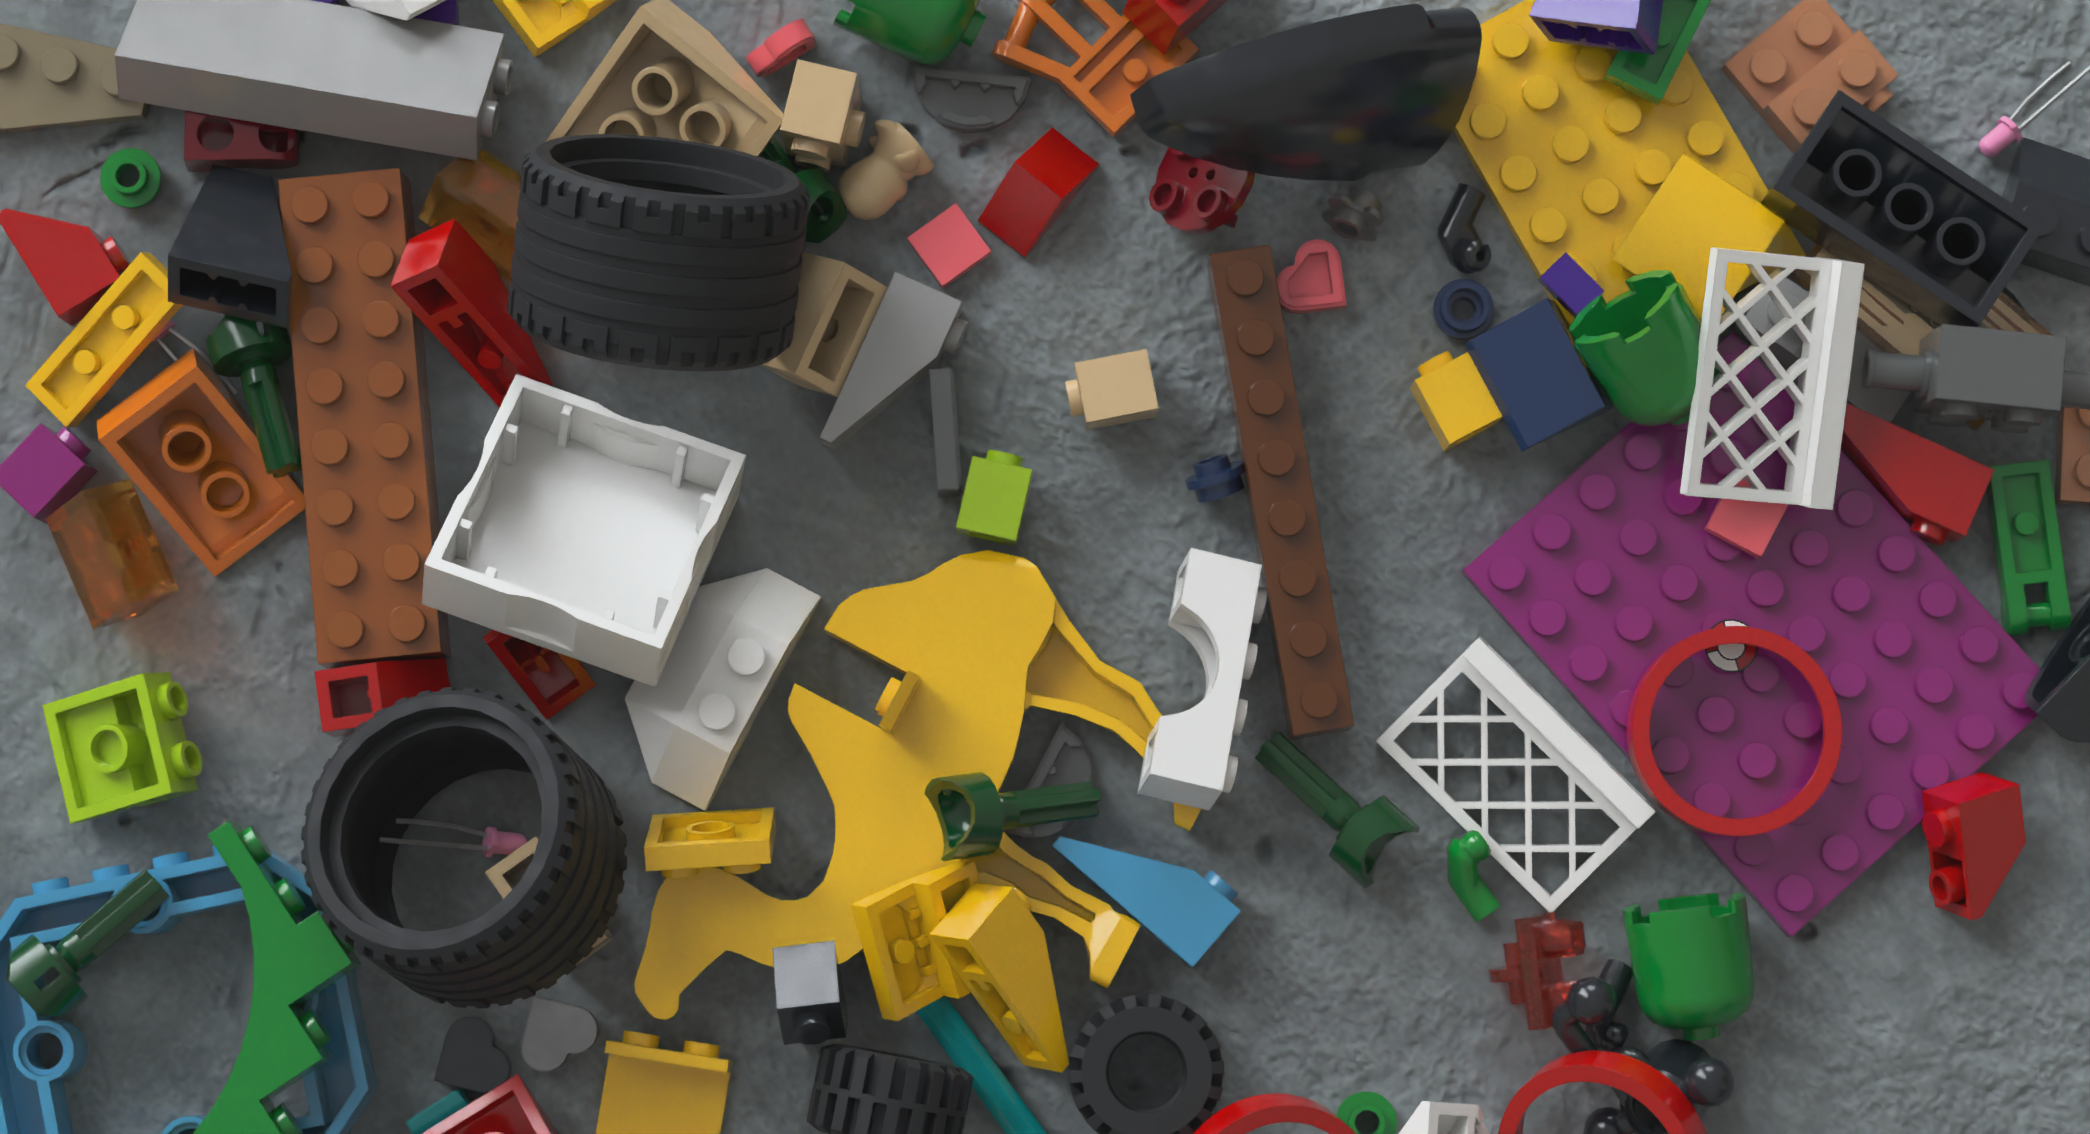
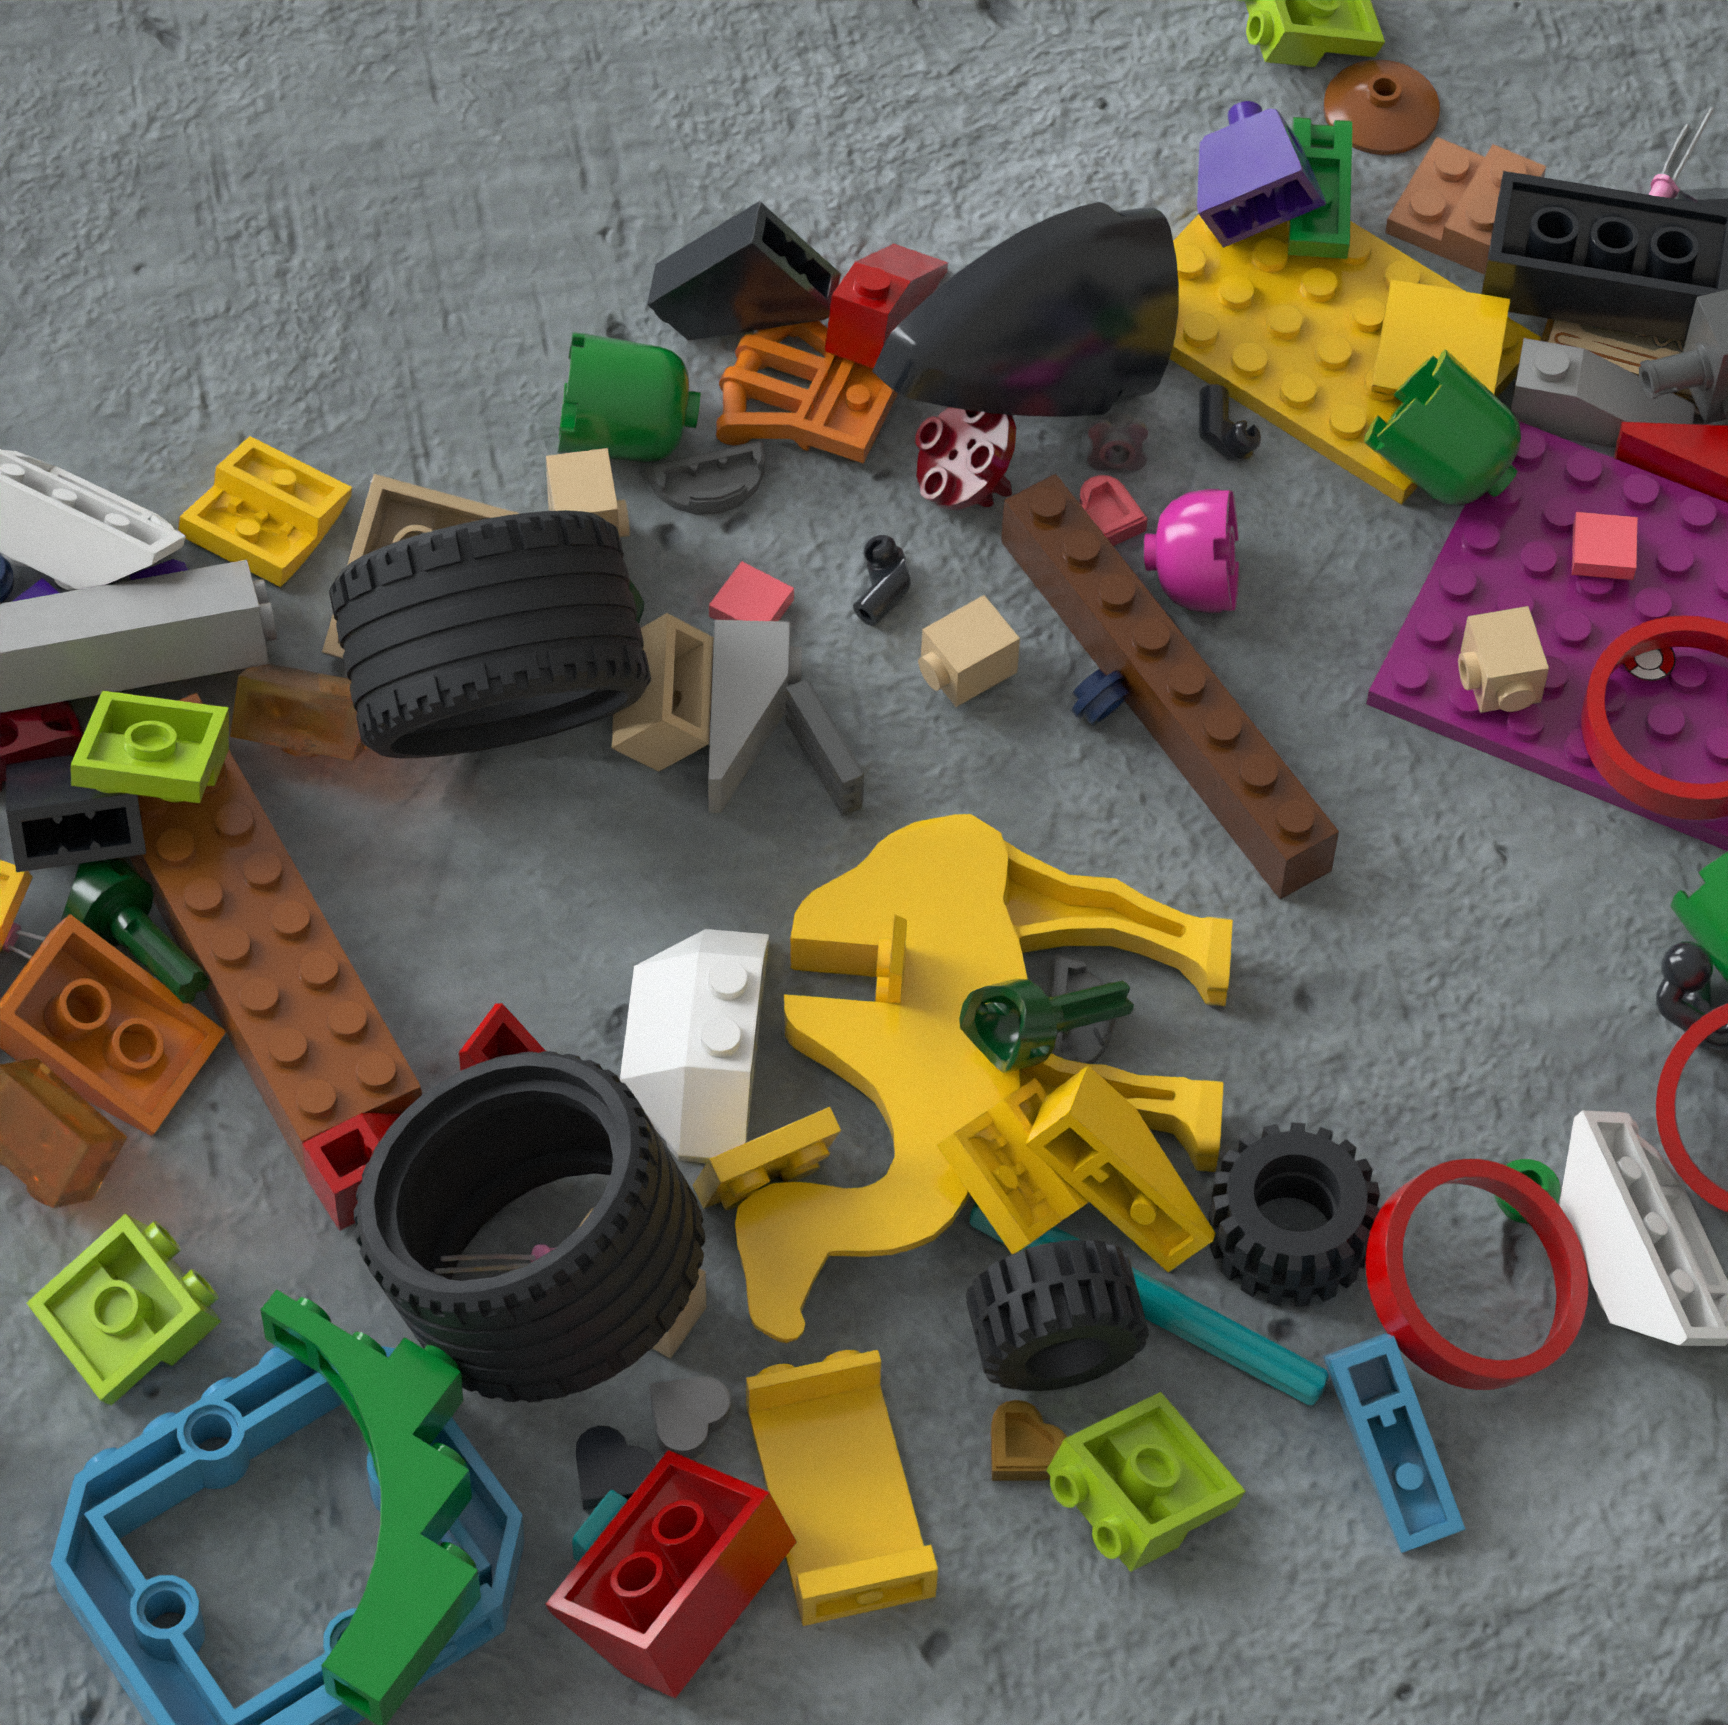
camera: 25 degrees left, 25 degrees down
(80, 948) = (157, 1493): dark green piece -> none
(317, 242) = (152, 747): none -> lime plate
(465, 306) = (324, 796): red slope -> none
(583, 530) = (517, 925): white tile -> none
(781, 48) = (521, 484): coral tile -> none
(809, 993) = (932, 1251): slope -> none
(881, 178) = (663, 554): tan animal -> none
(995, 498) = (900, 779): lime brick -> none
(1037, 191) = (812, 533): red slope -> none
(1083, 272) = (888, 579): none -> black arm
(1164, 898) = (1251, 1055): dark azure slope -> none
(1214, 610) = (1196, 895): white arch -> none
(1361, 830) = (1392, 931): dark green piece -> none
(1368, 372) = (1197, 551): none -> dark pink cylinder
(1454, 399) = (1288, 555): yellow brick -> none
(1464, 875) = (1504, 940): green arm -> none
(1471, 292) = (1259, 473): dark blue plate -> none
(1535, 965) = (1613, 960): clear red hips -> none
(1537, 375) = (1358, 494): dark blue slope -> none
(1554, 737) = (1525, 789): white fence -> none
(1570, 284) = (1344, 422): dark purple piece -> none
(1588, 608) = (1503, 660): none -> tan brick
(1821, 375) = (1609, 398): white fence -> none

